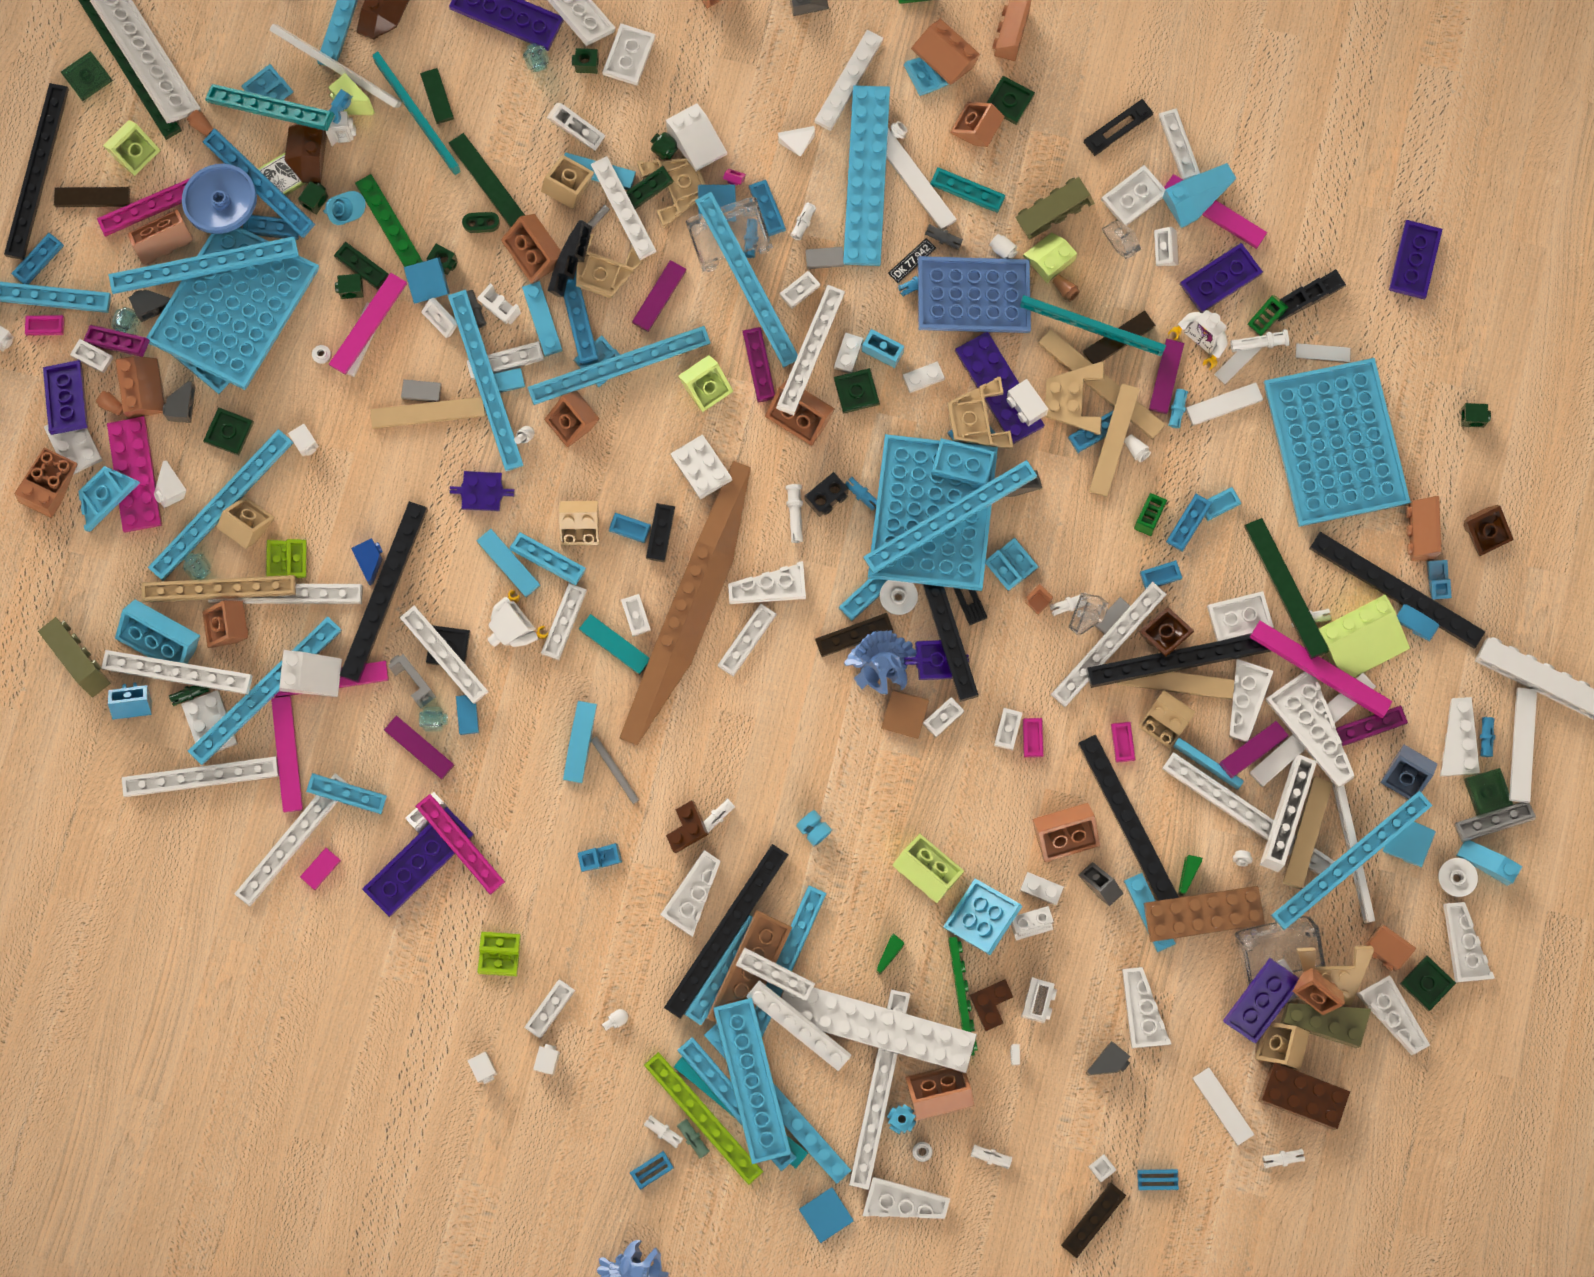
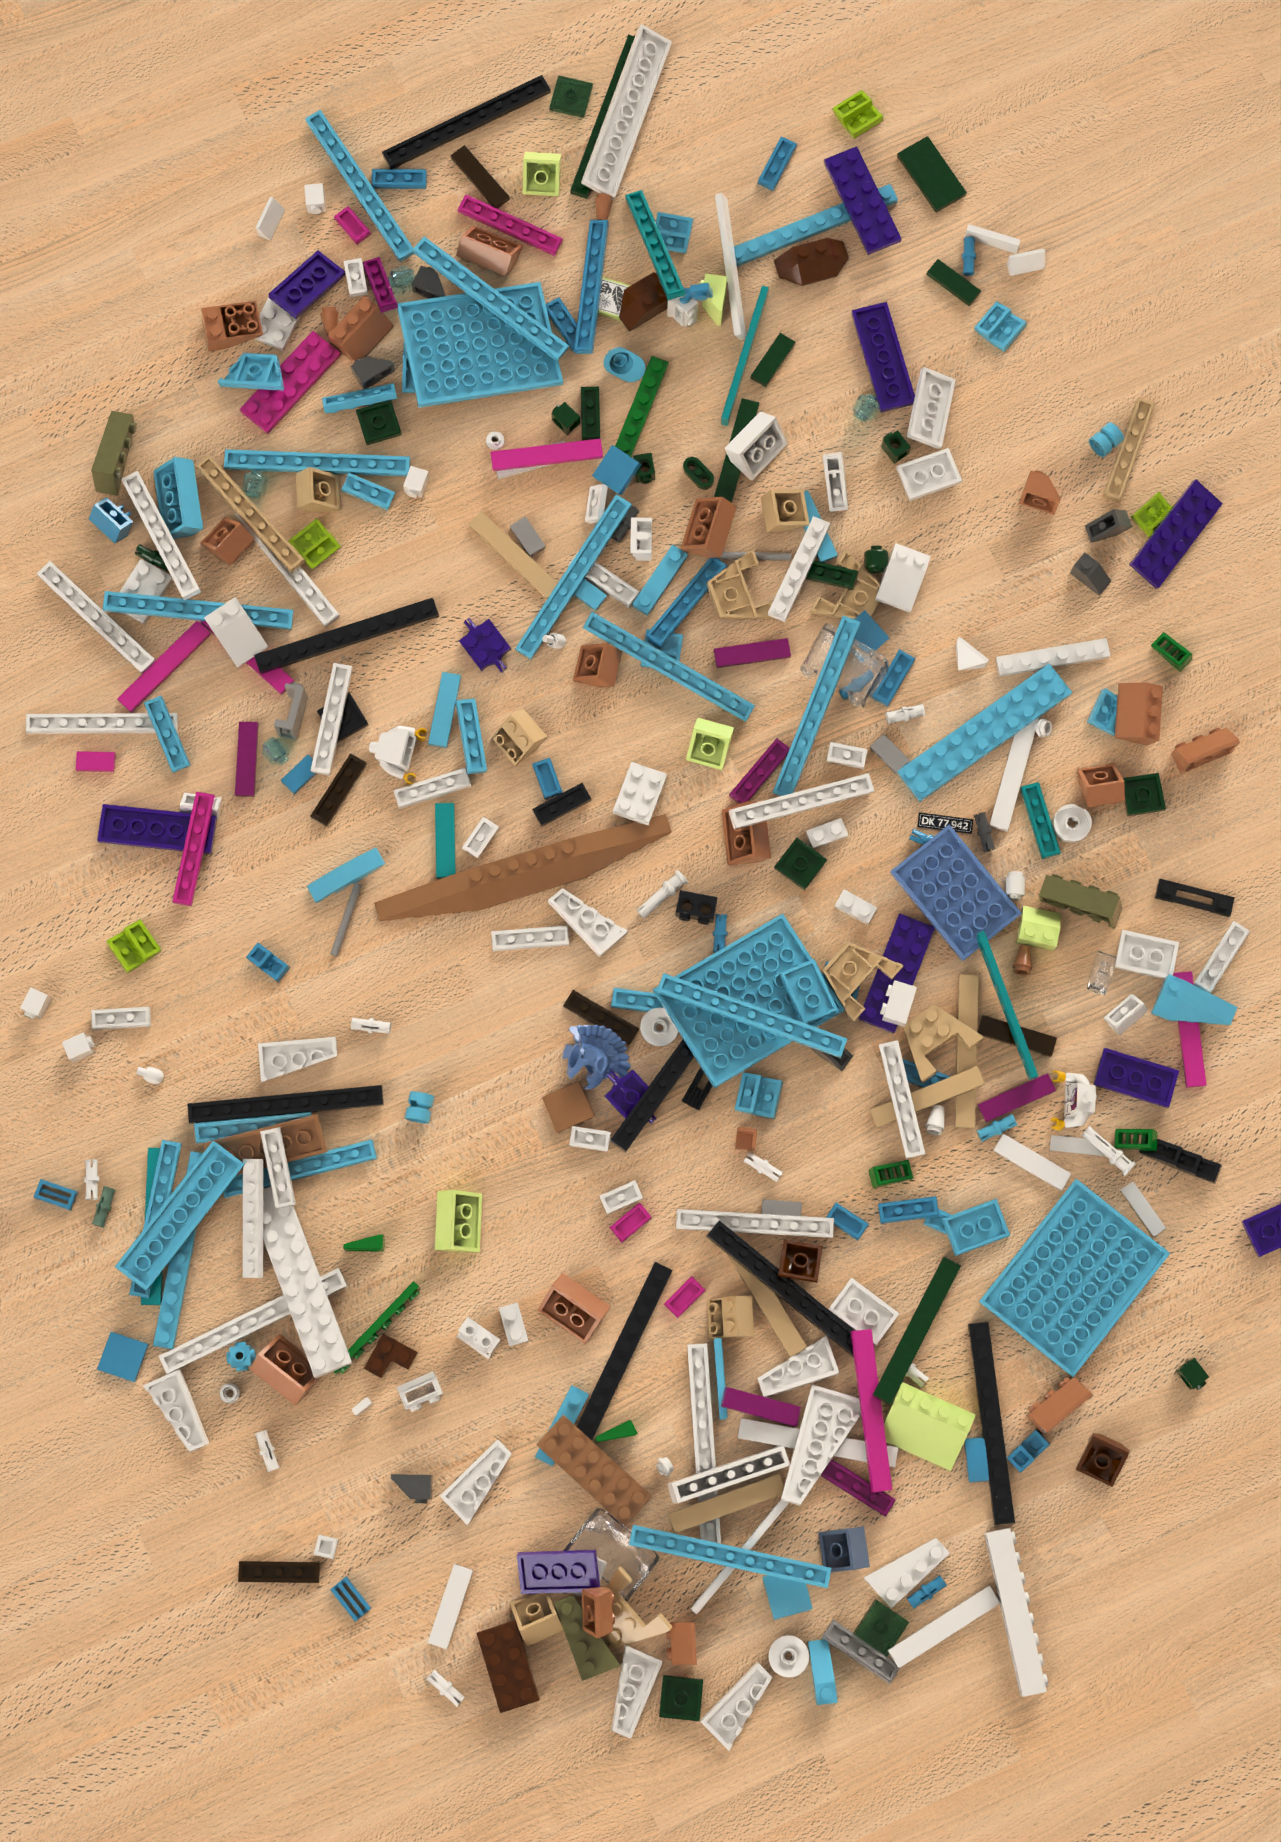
camera: 50 degrees right, 0 degrees up
(168, 487) = (298, 413): white slope -> none
(195, 430) = (359, 398): none -> medium azure plate
(219, 198) = (553, 267): medium blue dish -> none
(278, 483) = (368, 491): none -> medium azure hinge
(313, 197) = (613, 335): dark green brick -> none
(368, 558) = (362, 604): blue slope -> none
(497, 160) = (756, 445): none -> white slope
(504, 695) = (338, 790): none -> dark brown tile
(572, 253) = (725, 559): black slope -> none
(691, 829) = (345, 1013): reddish brown plate -> none
(703, 1118) = (126, 1200): lime tile -> none
(734, 177) = (896, 632): dark pink plate -> none
(883, 348) = (850, 856): medium azure brick -> none
(982, 916) = (451, 1294): medium azure plate -> none
(992, 178) = (1076, 813): none -> white plate
(1088, 613) = (766, 1186): clear slope -> none
(1101, 884) = (553, 1368): dark grey slope -> none
(1102, 459) = (902, 1099): none -> white plate
(1241, 483) = (975, 1227): none -> medium azure tile

